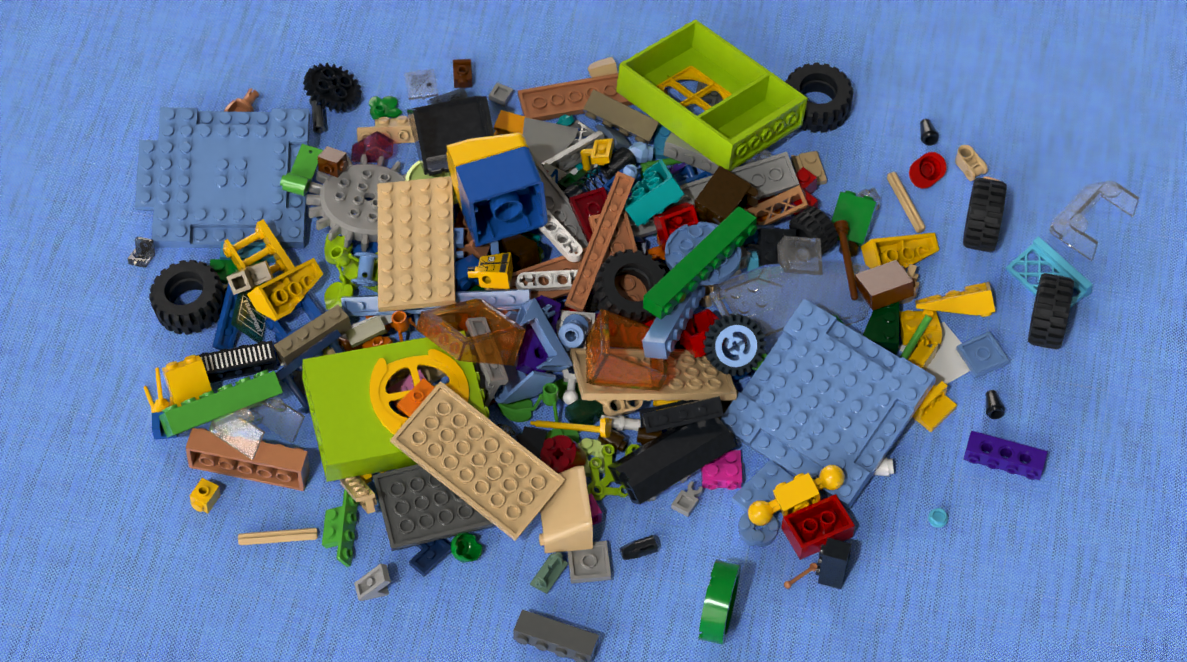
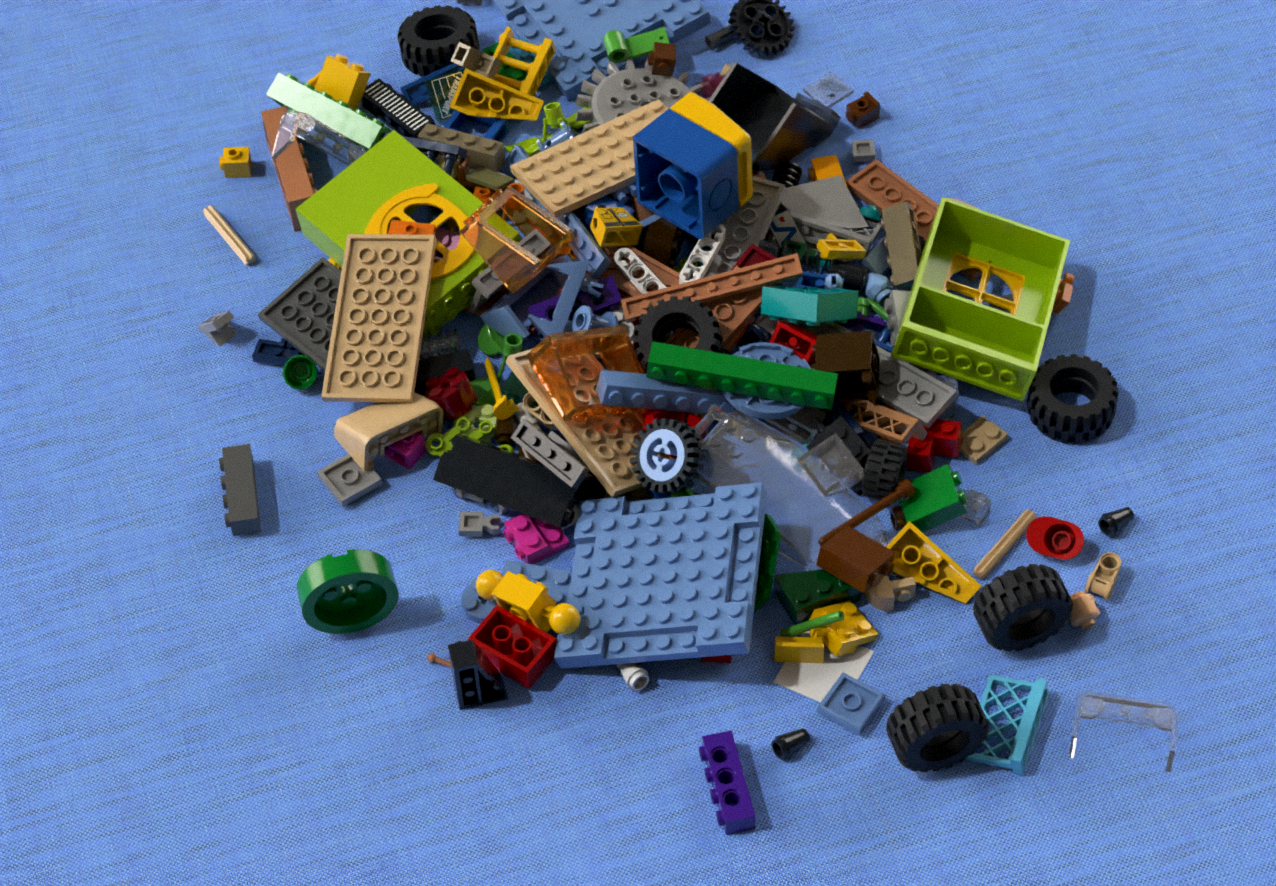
camera: 65 degrees right, 5 degrees down
(340, 529) = (266, 275): bright green bracket -> none
(360, 492) = (299, 259): tan bracket -> none
(384, 107) = (776, 74): green plate -> none
(549, 572) = (316, 453): sand green hinge -> none
(639, 548) = (393, 511): black hinge -> none
(934, 407) = (746, 684): yellow bracket -> none
(938, 518) = (605, 756): medium azure plate -> none
(974, 300) = (909, 659): yellow wedge -> none

